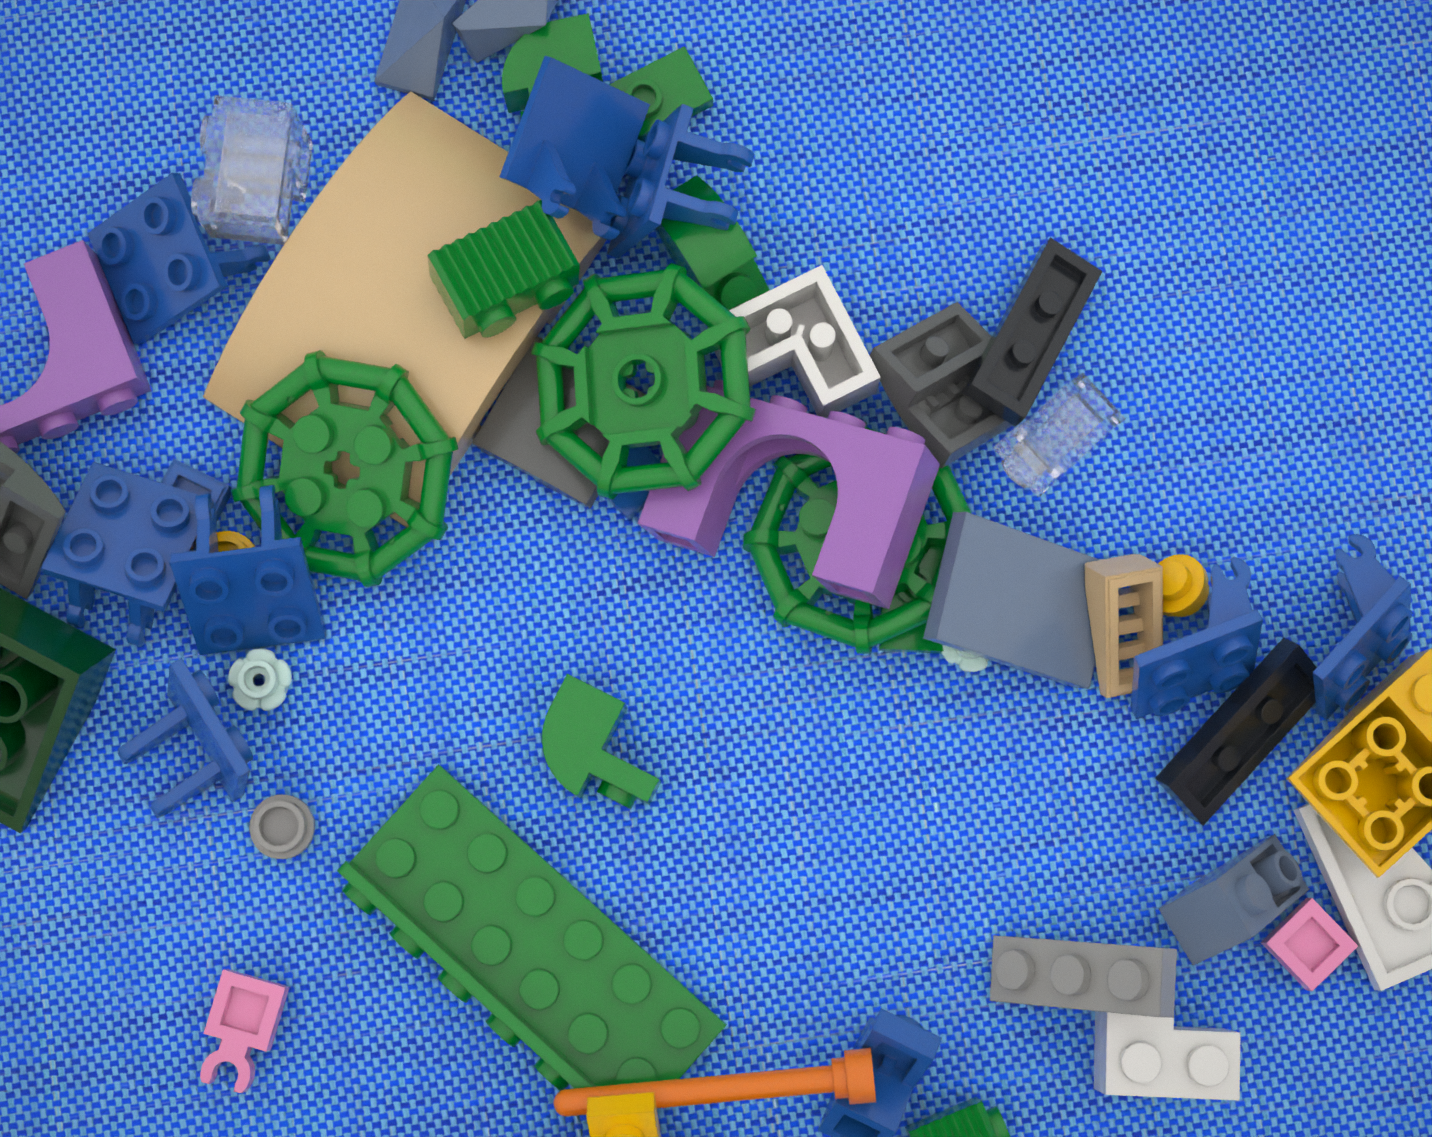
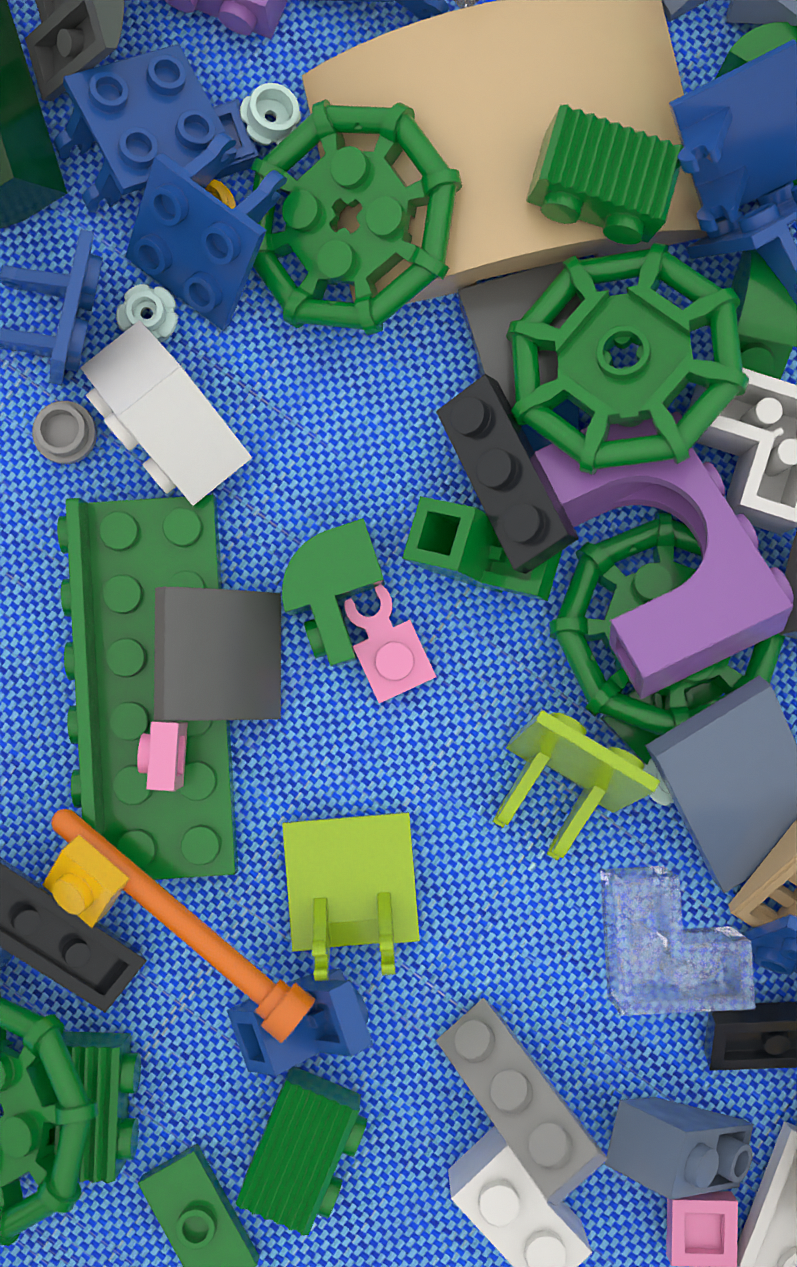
camera: 45 degrees right, 5 degrees up
(210, 433) = (275, 101): none -> light aqua plate
(346, 736) = (157, 405): none -> white brick
(558, 874) = (217, 654): none -> dark grey slope
(589, 983) = (163, 755): none -> bright pink plate
(639, 543) = (506, 475): none -> black plate
(675, 612) = (464, 547): none -> green brick
(682, 755) = (391, 655): none -> bright pink plate
(817, 948) = (350, 885): none -> lime plate
(919, 686) = (606, 775): none -> lime plate
(1087, 784) = (656, 962): none -> clear brick

